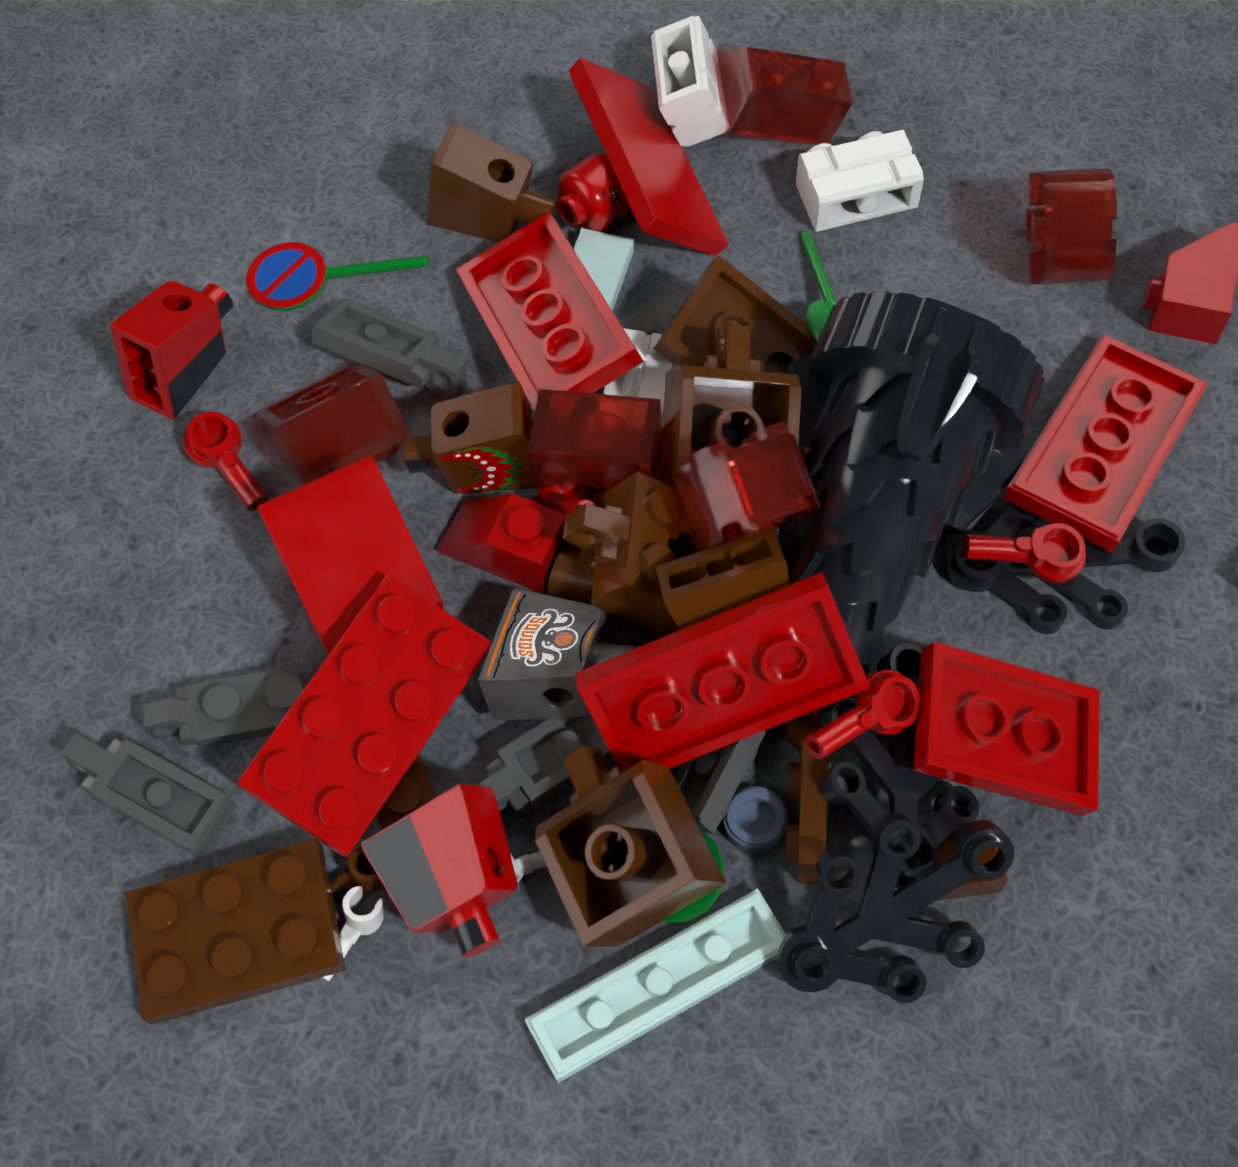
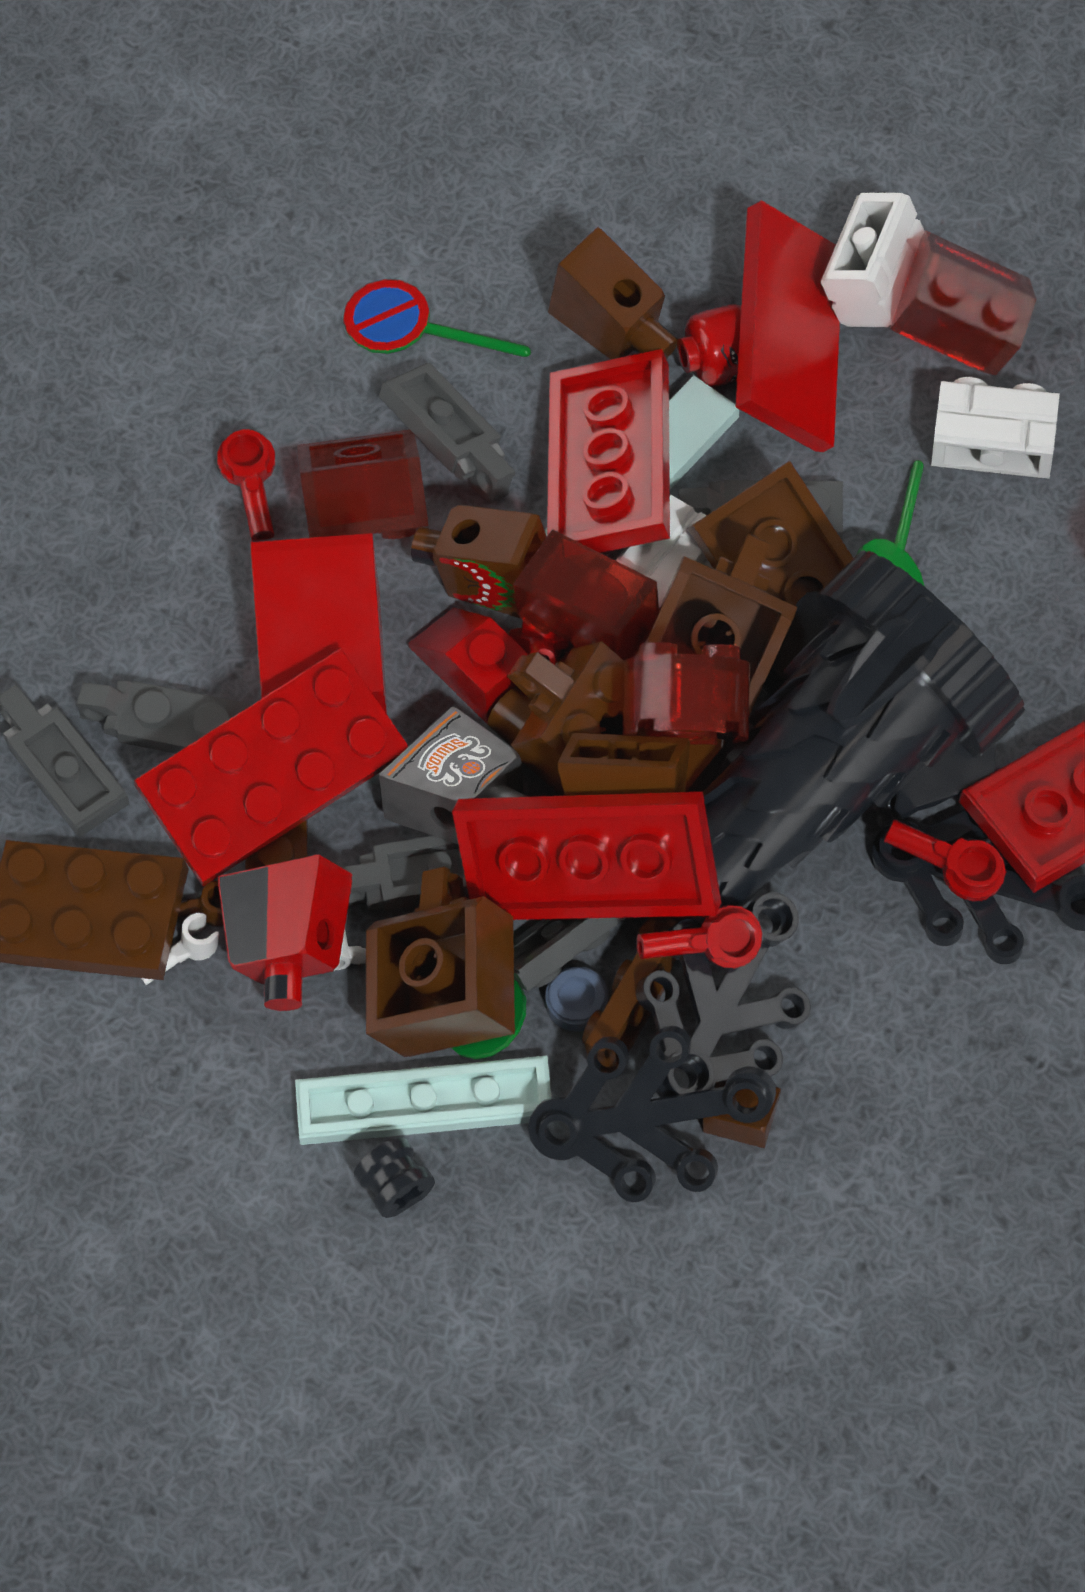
camera: 25 degrees right, 0 degrees up
(171, 344) = (245, 350): red torso -> none
(672, 1081) = (394, 1177): none -> black wheel
(1007, 729) = (836, 1007): red plate -> none

